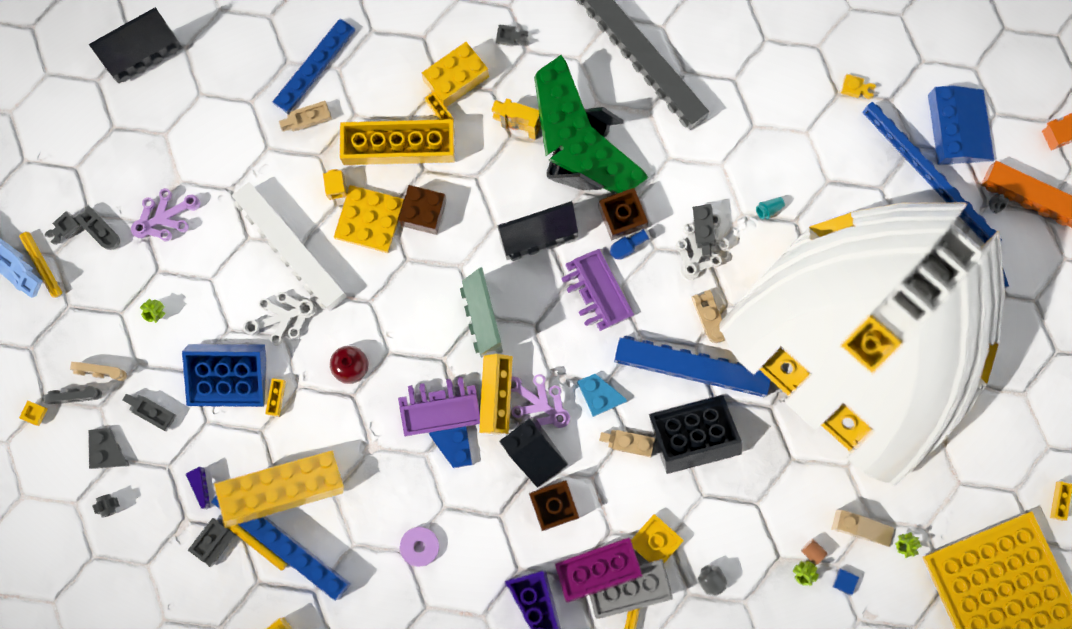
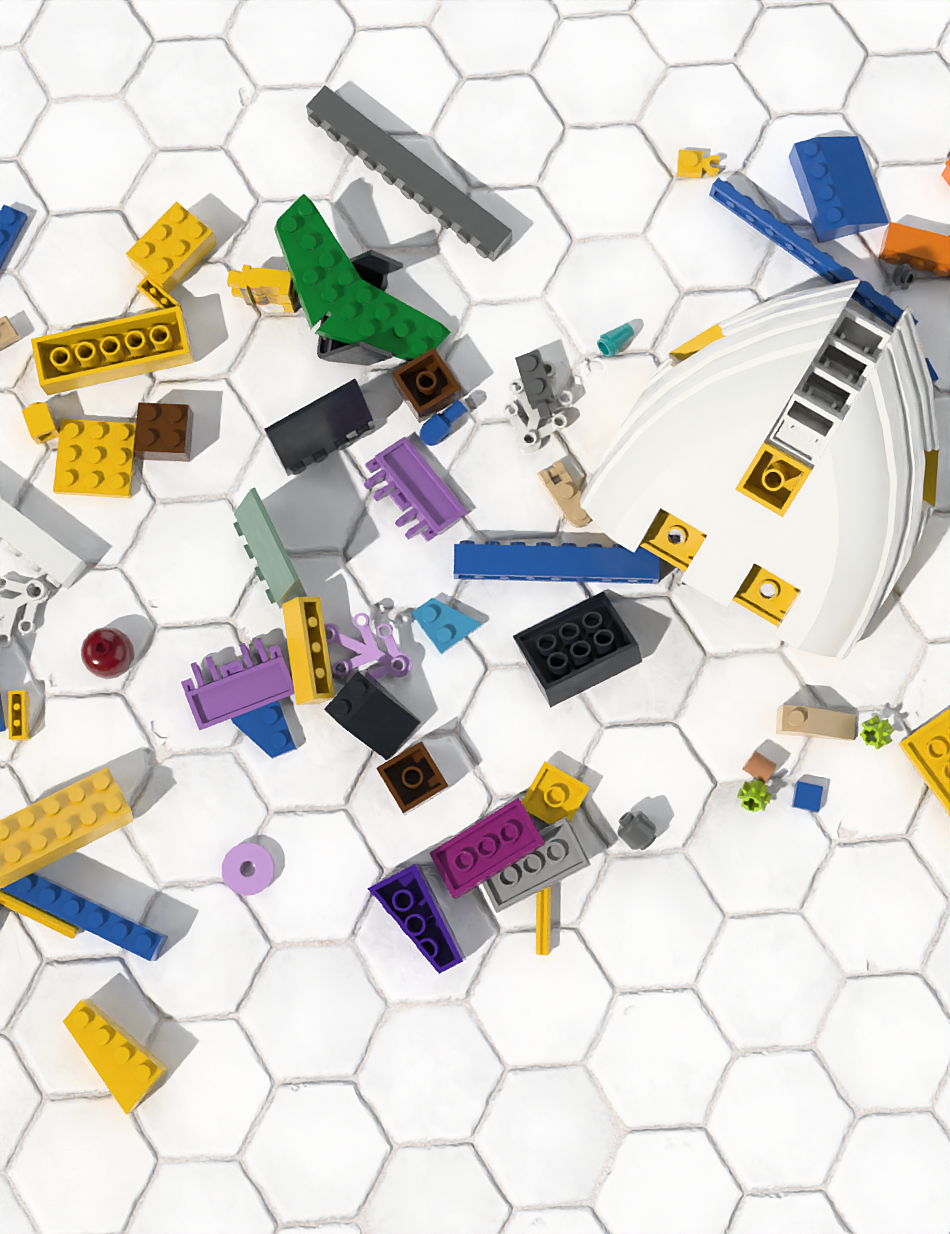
camera: 15 degrees left, 0 degrees up
(507, 35) = (230, 184): dark grey plate -> none
(629, 442) = (493, 677): tan hinge -> none

